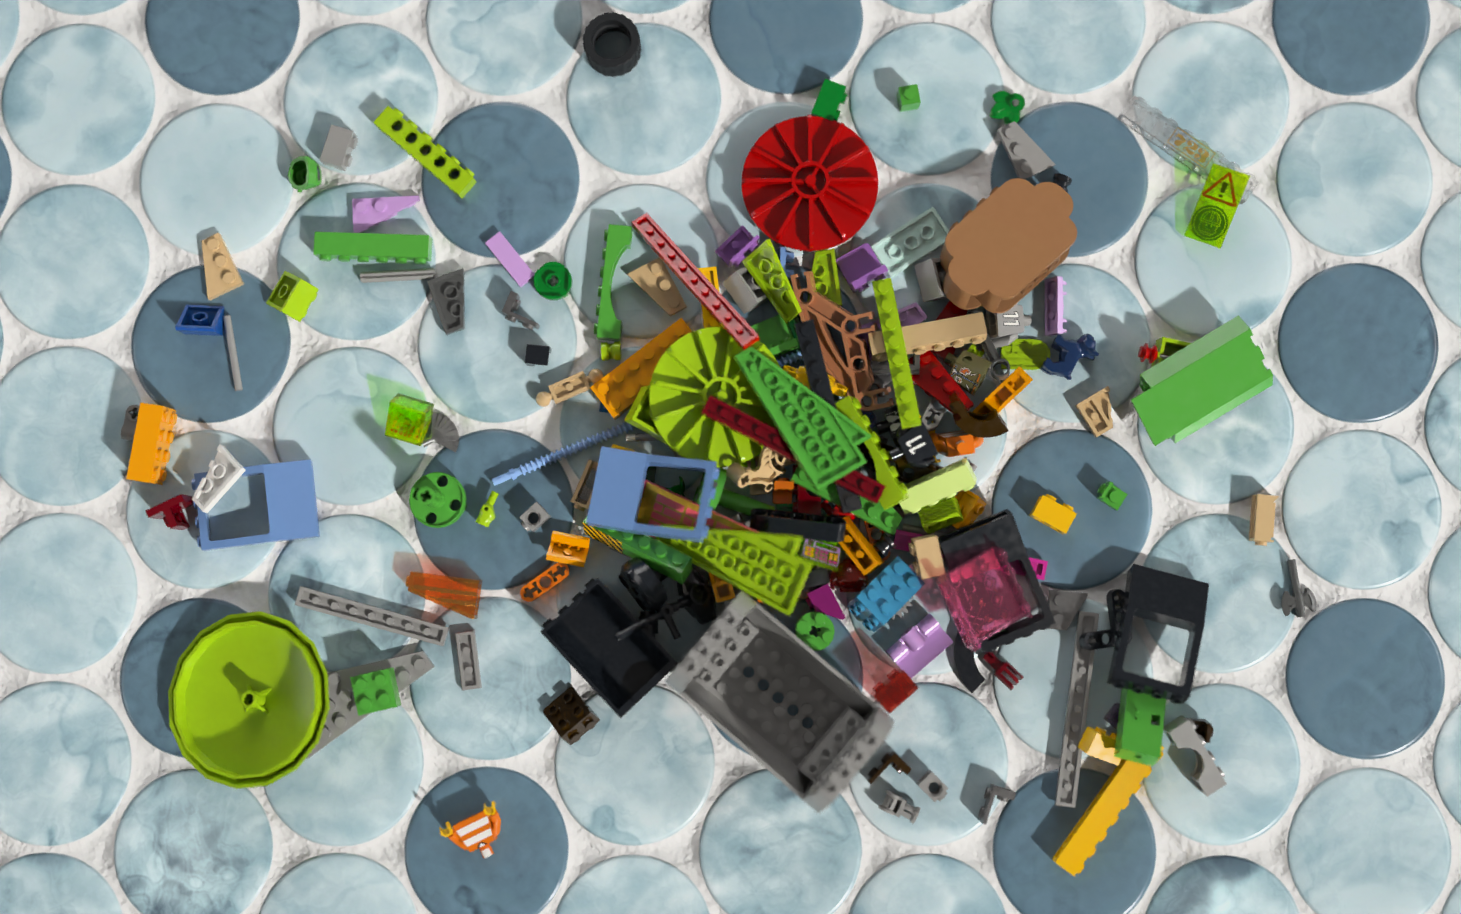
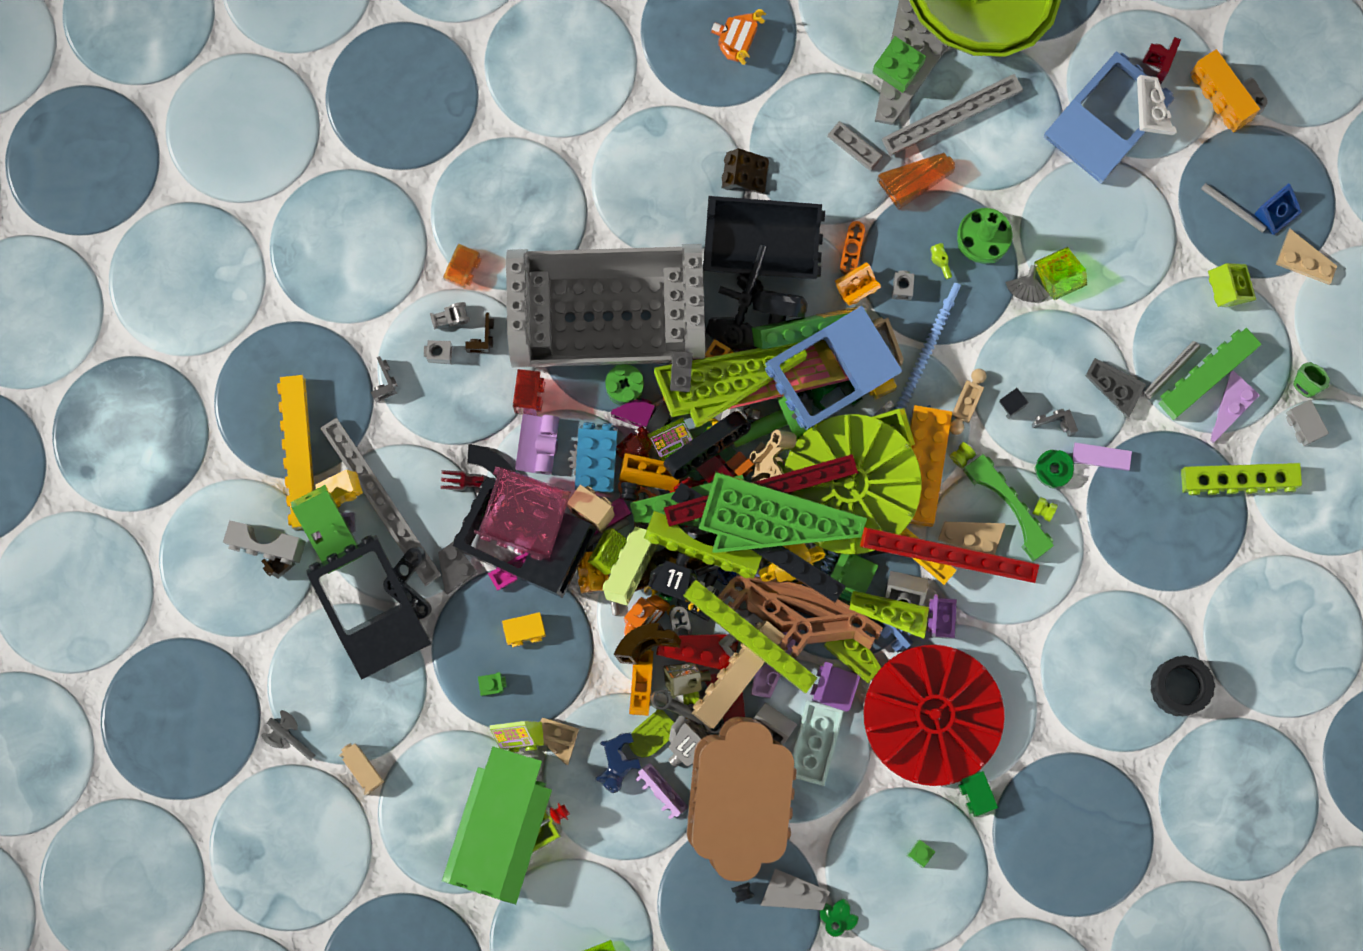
camera: 135 degrees right, 5 degrees down
(588, 257) = (1045, 509): none -> lime wheel
(773, 592) = (681, 371): none -> flat silver bracket
(855, 839) = (461, 266): none -> clear orange brick
(1127, 438) = (518, 735): none -> lime slope

